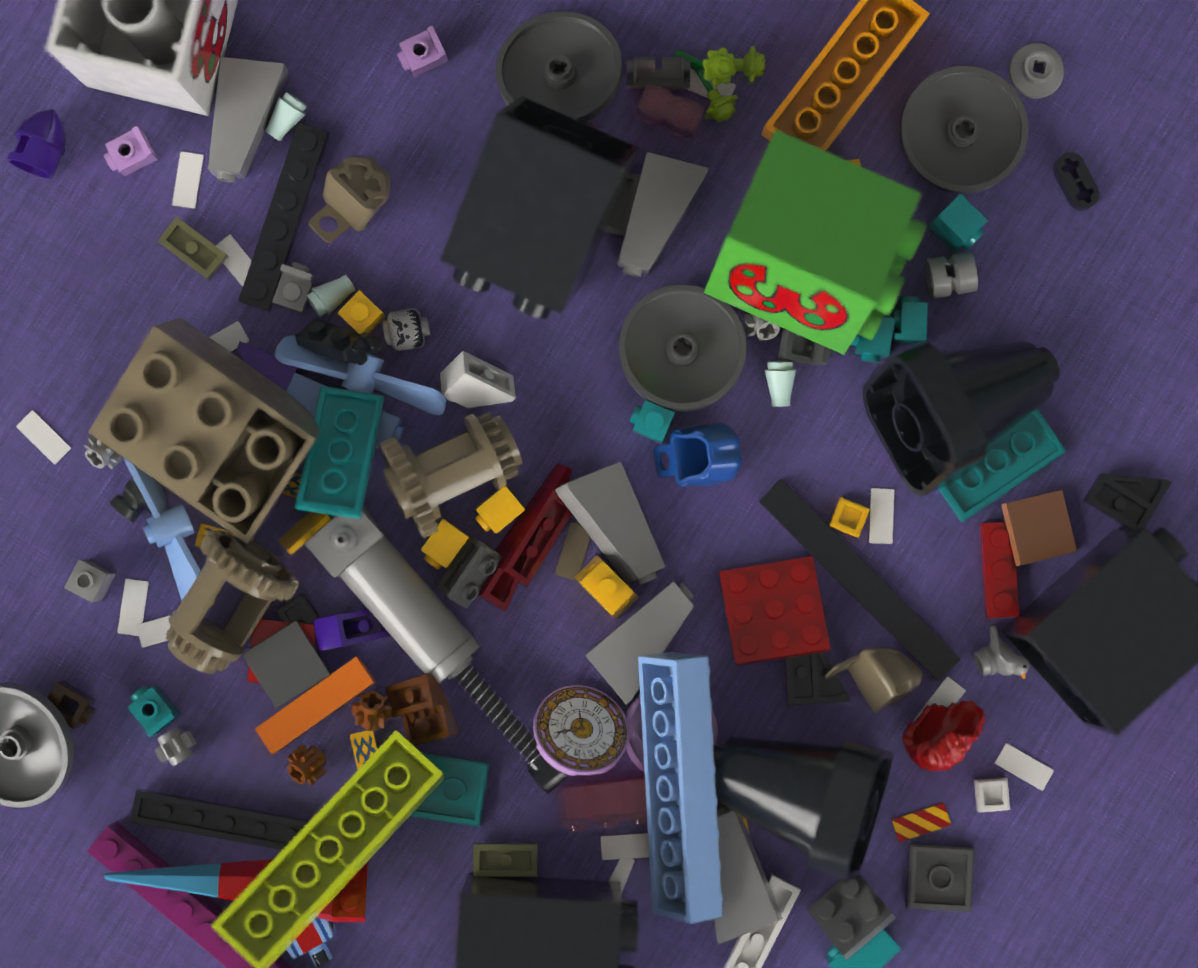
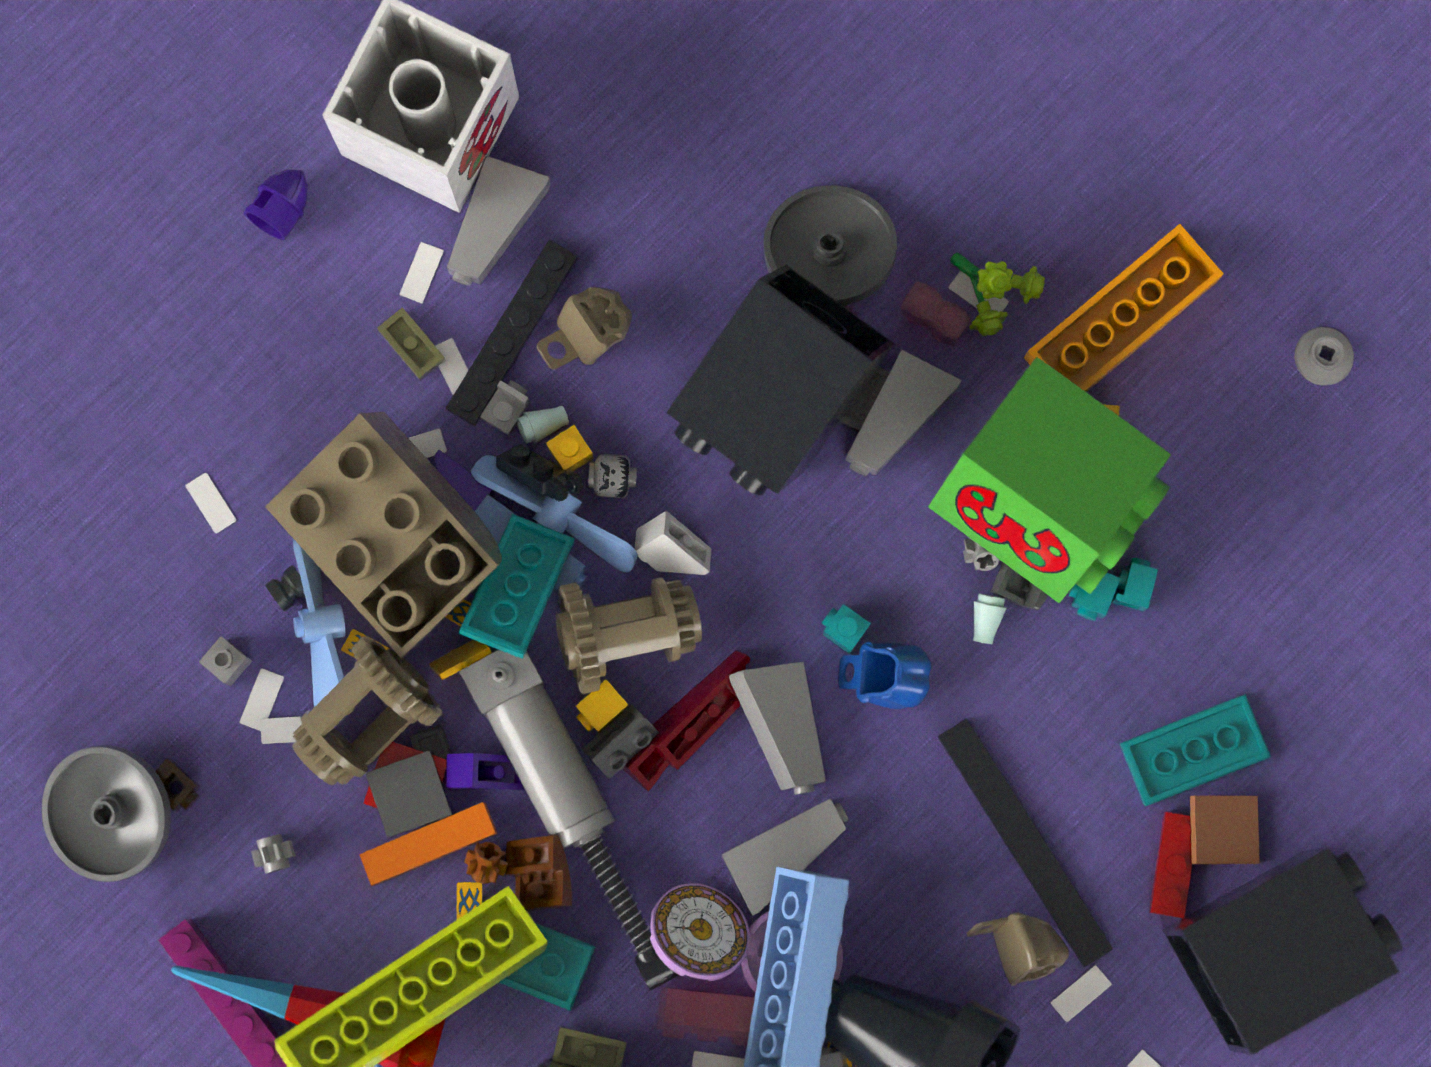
camera: 10 degrees right, 5 degrees down
(100, 454) = (269, 532): light grey gear -> none
(139, 156) = (379, 238): lavender brick -> none
(164, 711) = (268, 818): teal brick -> none
(215, 819) = (295, 939): black plate -> none
(285, 116) = (537, 230): light aqua cone -> none
(306, 765) = (405, 904): dark orange gear -> none
(432, 58) = (702, 204): lavender brick -> none
(498, 510) = (665, 684): yellow brick -> none
(573, 552) = (732, 746): dark tan sticker -> none
(606, 587) = (760, 789): yellow torso -> none
(672, 75) = (945, 277): dark grey hinge -> none
(682, 348) = (893, 559): dark grey dish -> none
(774, 611) = (928, 854): red plate -> none
(808, 683) = (947, 929): black wing -> none
(849, 517) = (1028, 774): yellow tile -> none
(881, 516) = (1063, 781): white sticker -> none
(943, 734) = (1076, 1023): red piece -> none
(949, 408) = (1156, 681): black cone -> none
(959, 224) = (1207, 496): teal brick -> none
(962, 276) = (1200, 549): light grey wheel -> none
(964, 129) = (1234, 400): dark grey dish -> none
(999, 658) = (1154, 957): light grey animal -> none
(1082, 177) = (1348, 477): black beam -> none
(1127, 498) = (1323, 820): black wing -> none

